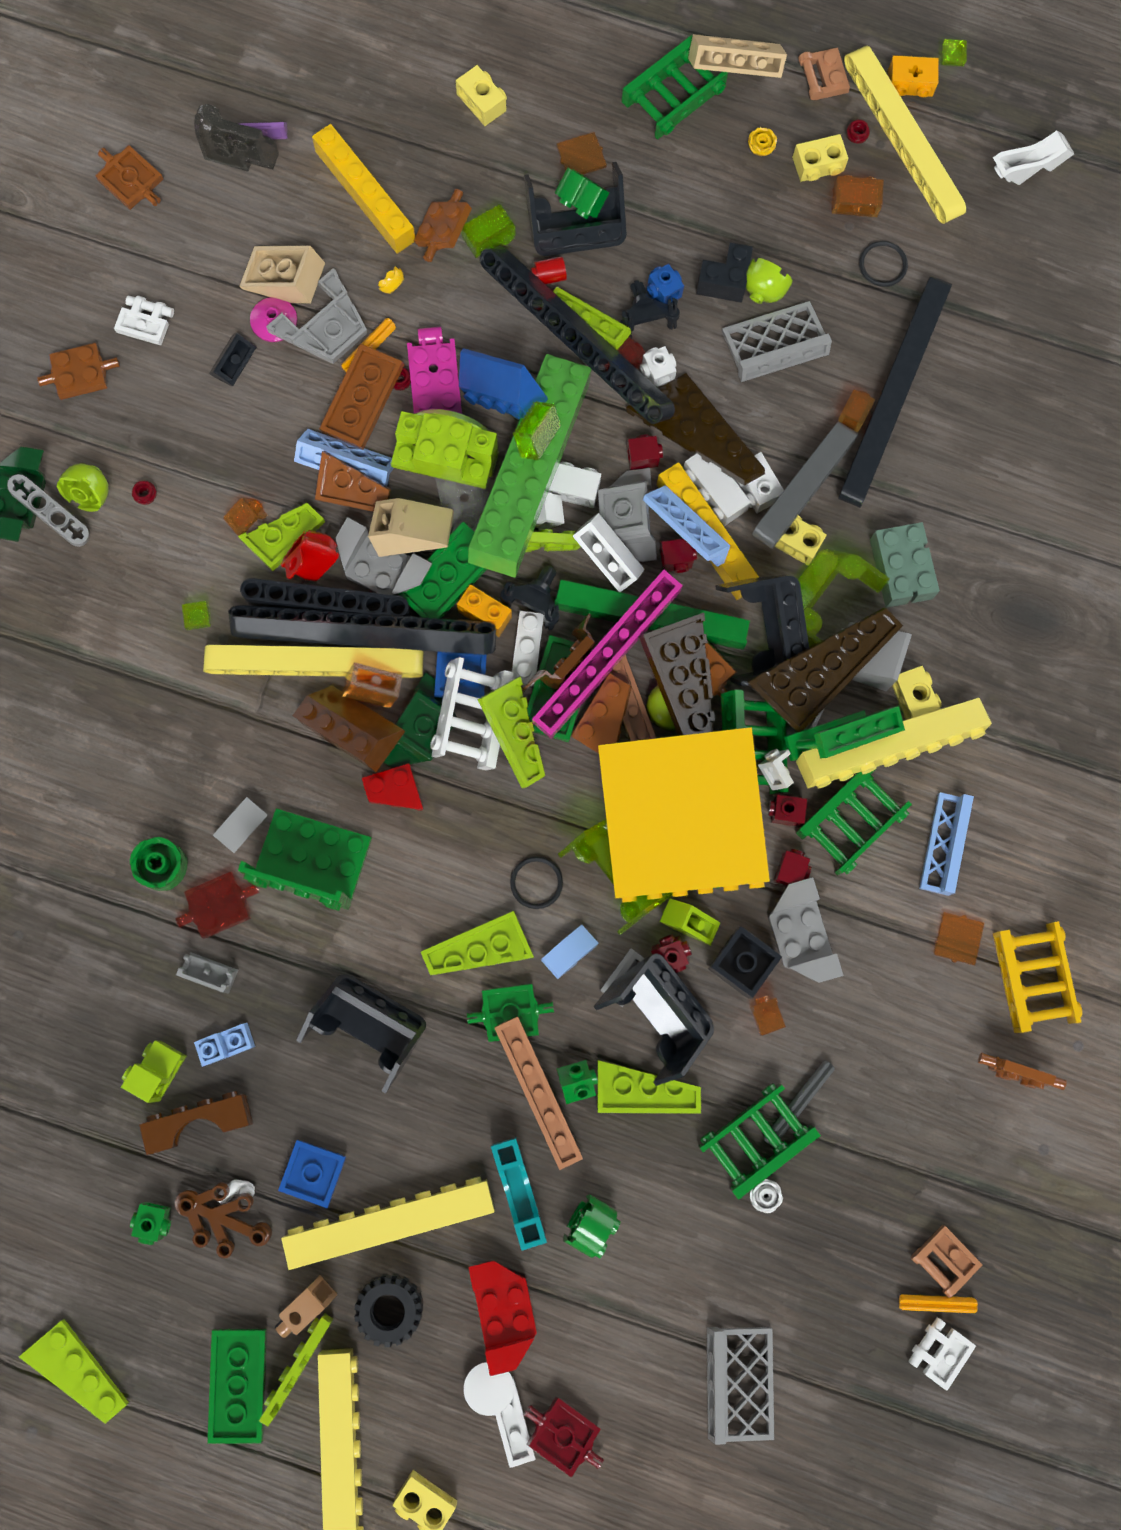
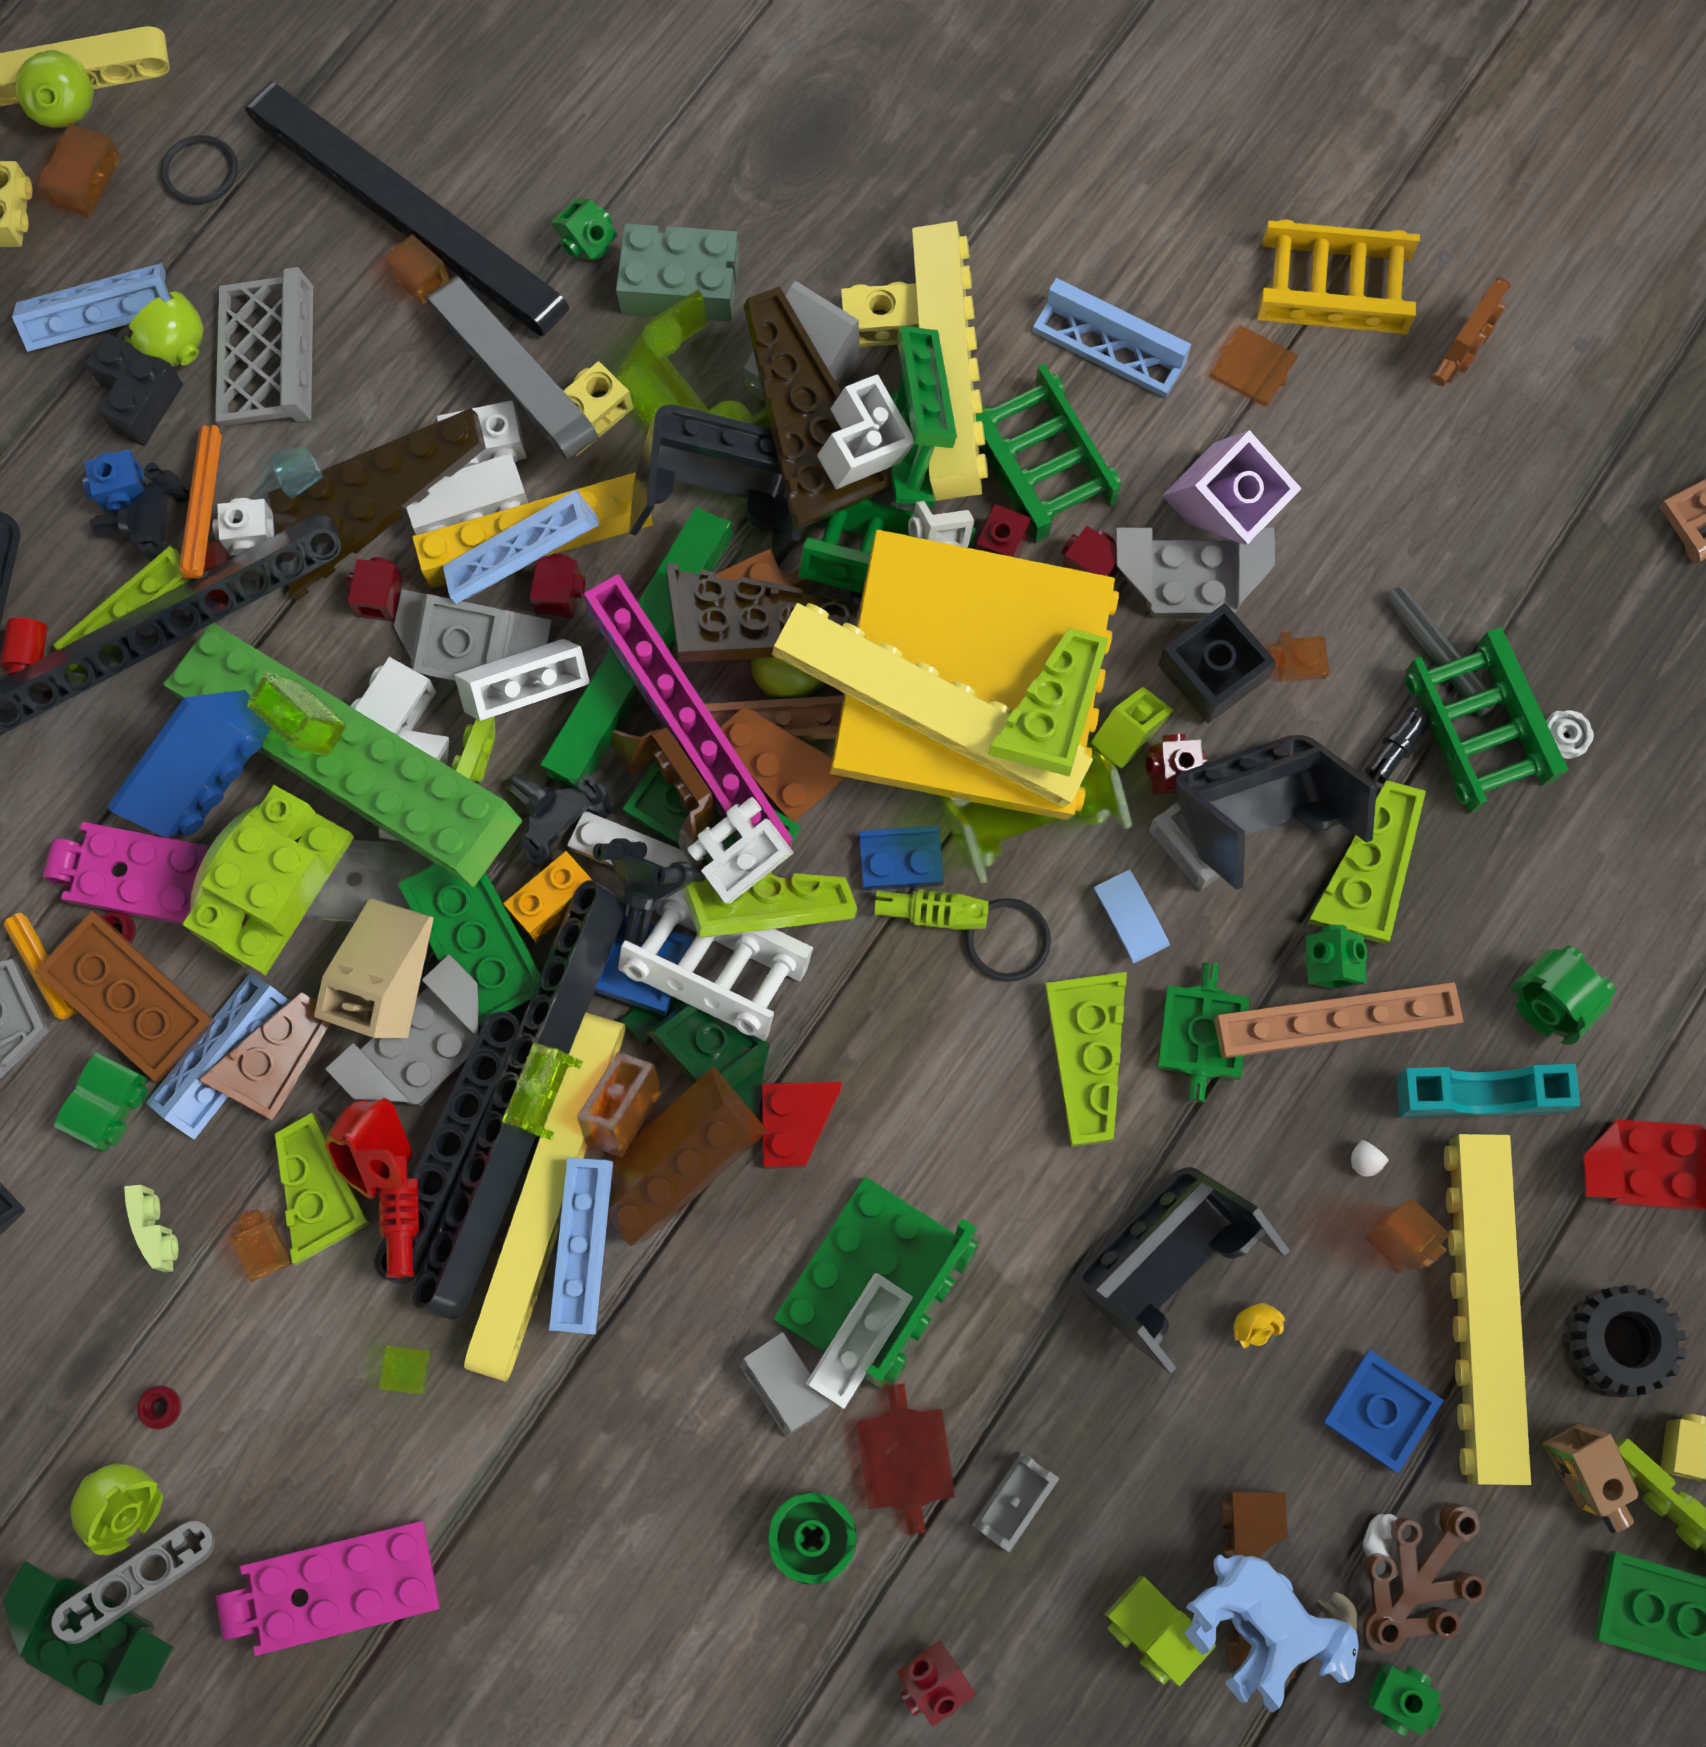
camera: 65 degrees left, 5 degrees down
(76, 621) = (347, 1585): none -> dark pink hinge
(96, 953) = (934, 1684): none -> dark red brick
(168, 1136) = (1275, 1627): none -> light blue animal
(224, 1044) = (1139, 1505): light blue slope -> none
(230, 461) = (153, 1240): none -> yellowish green slope
(272, 584) = (399, 1223): none -> red hinge
(273, 858) = (859, 1340): none -> white plate
(285, 687) = (581, 1246): none -> light blue fence
(299, 405) = (102, 1102): none -> green brick
(343, 1087) = (1257, 1324): none -> yellow plate
(364, 637) = (538, 1089): none -> clear neon green hinge
(415, 1164) = (1408, 1237): none -> clear orange brick
(459, 1130) = (1367, 1159): none -> white hinge
(504, 659) = (644, 882): none -> black axle
(529, 713) = (745, 861): none -> white plate
(541, 833) = (934, 909): none -> lime hinge
(568, 805) = (901, 858): none -> blue plate
(650, 791) = (913, 696): none -> light yellow brick
(665, 336) = (200, 502): none -> orange axle
(670, 865) = (1053, 713): none -> lime wing
(702, 382) = (295, 469): none -> clear light blue slope
(727, 1089) = (1397, 745): none -> black pin
(772, 233) = (88, 307): none -> light blue fence
(821, 709) = (870, 436): none -> white brick
(859, 943) = (1232, 489): none -> lavender slope
(903, 162) = (54, 89): none -> lime cylinder
(913, 500) = (584, 229): none -> green brick

